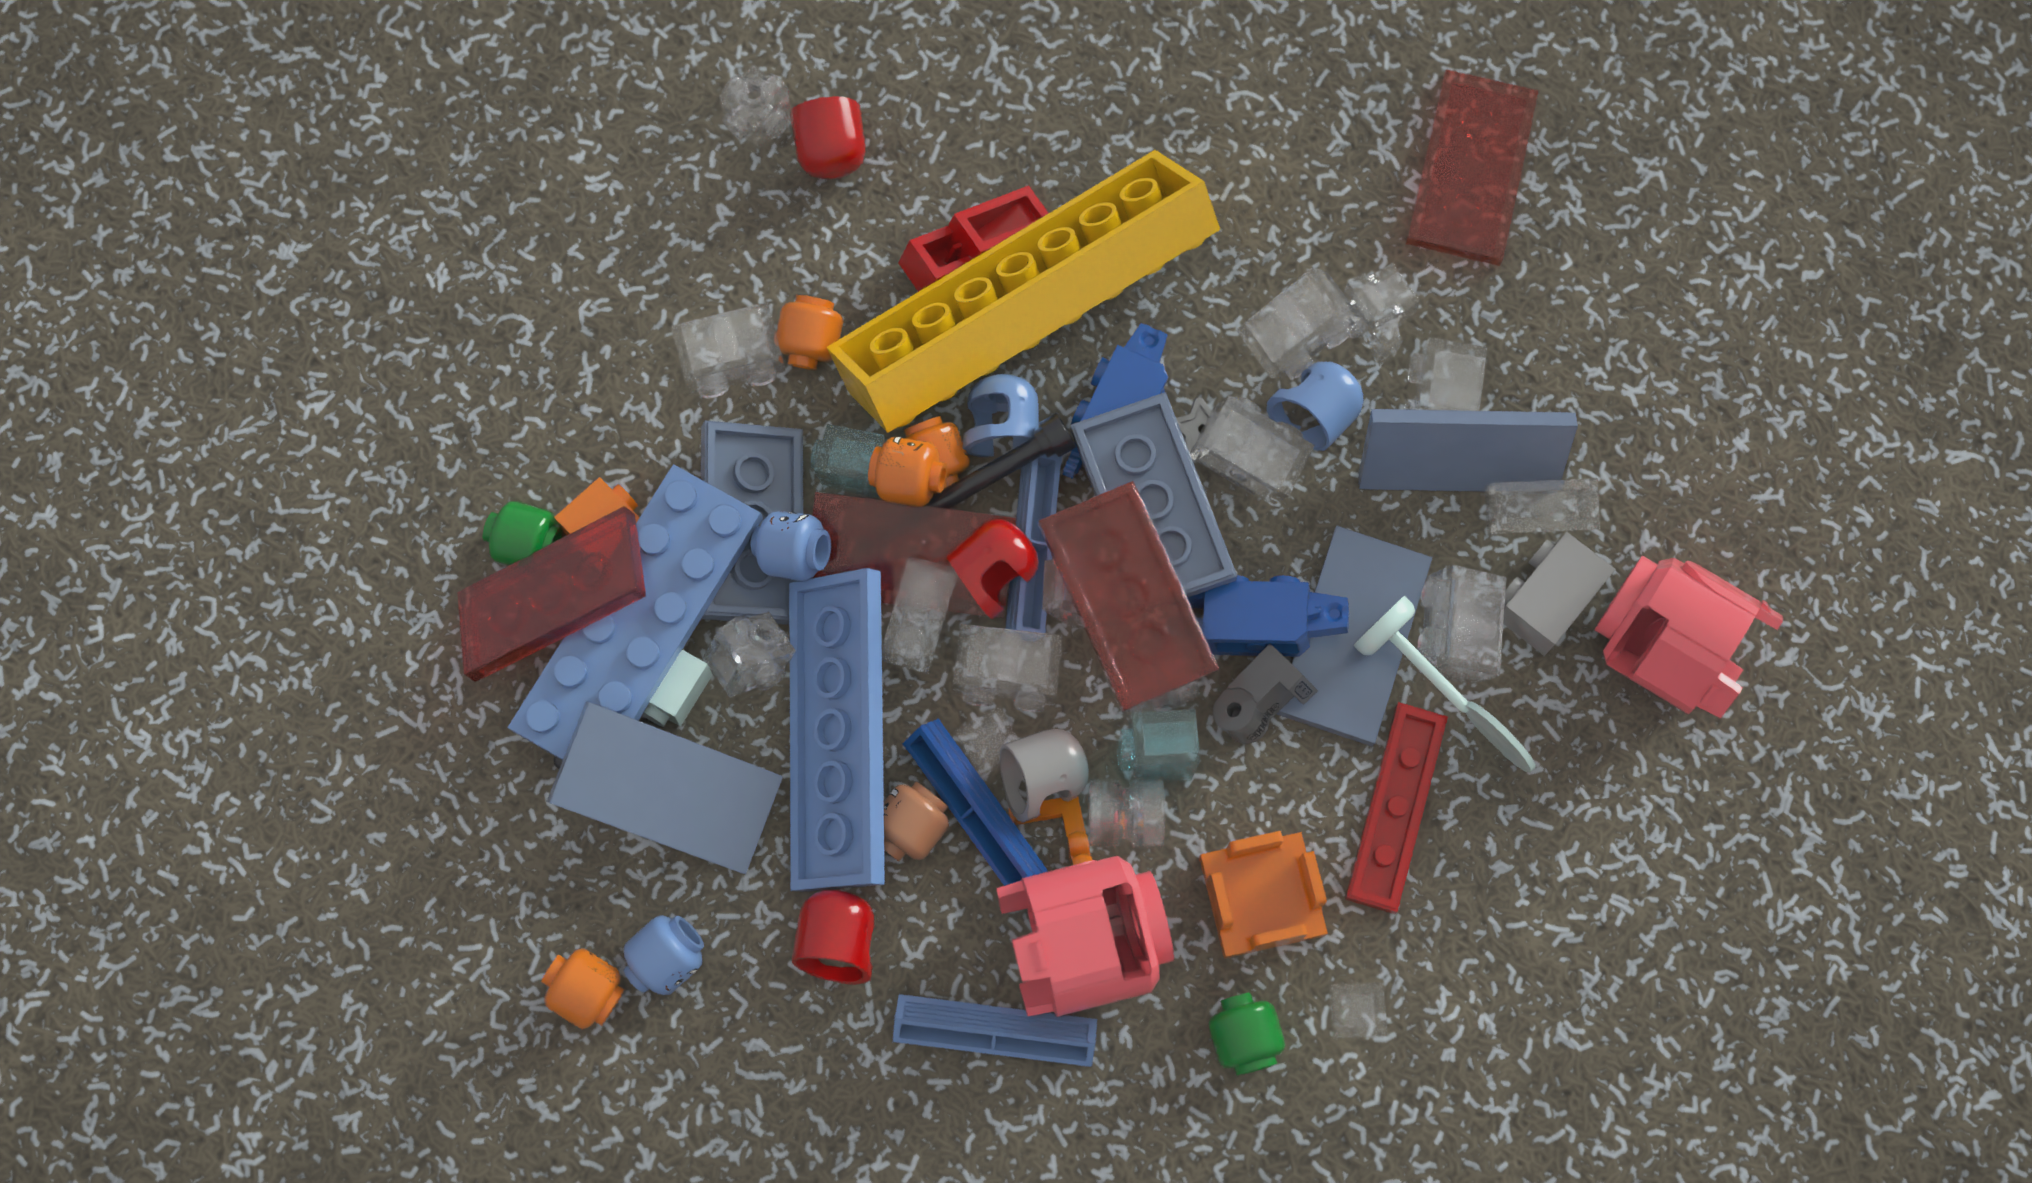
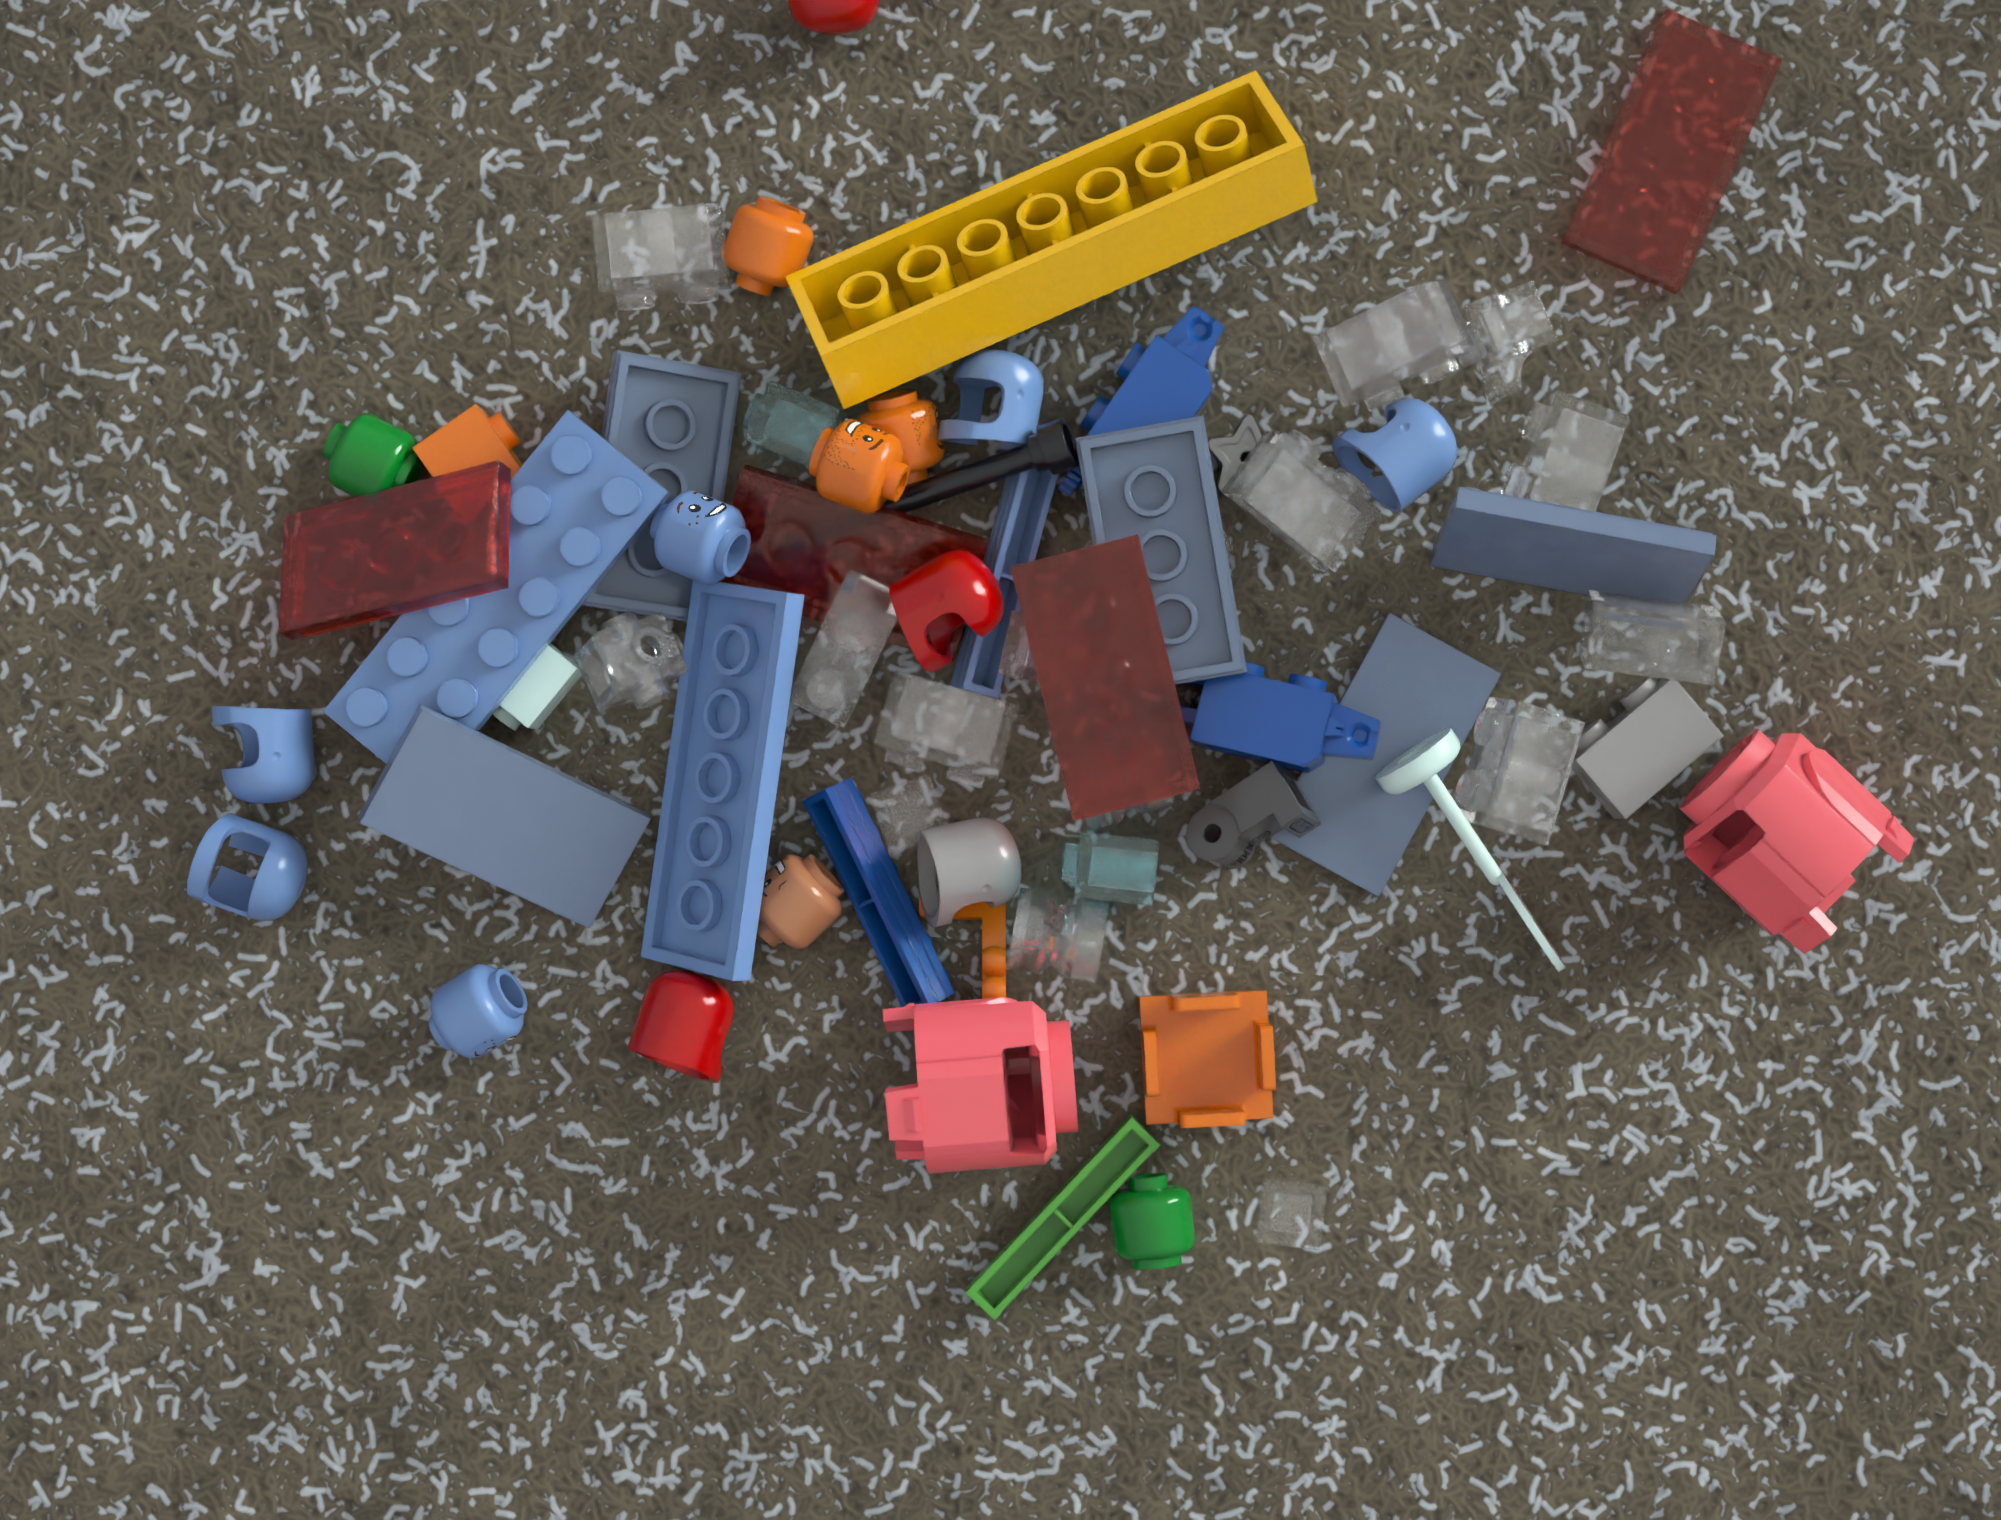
camera: 15 degrees right, 15 degrees up
(480, 774) = (282, 759): none -> medium blue helmet
(484, 876) = (278, 878): none -> medium blue helmet
(582, 988) = (377, 1035): orange head -> none
(969, 235) = (999, 148): red slope -> none
(994, 1030) = (852, 1164): medium blue piece -> none
(1171, 1044) = (1062, 1216): none -> bright green piece
(1396, 808) = (1390, 977): red tile -> none

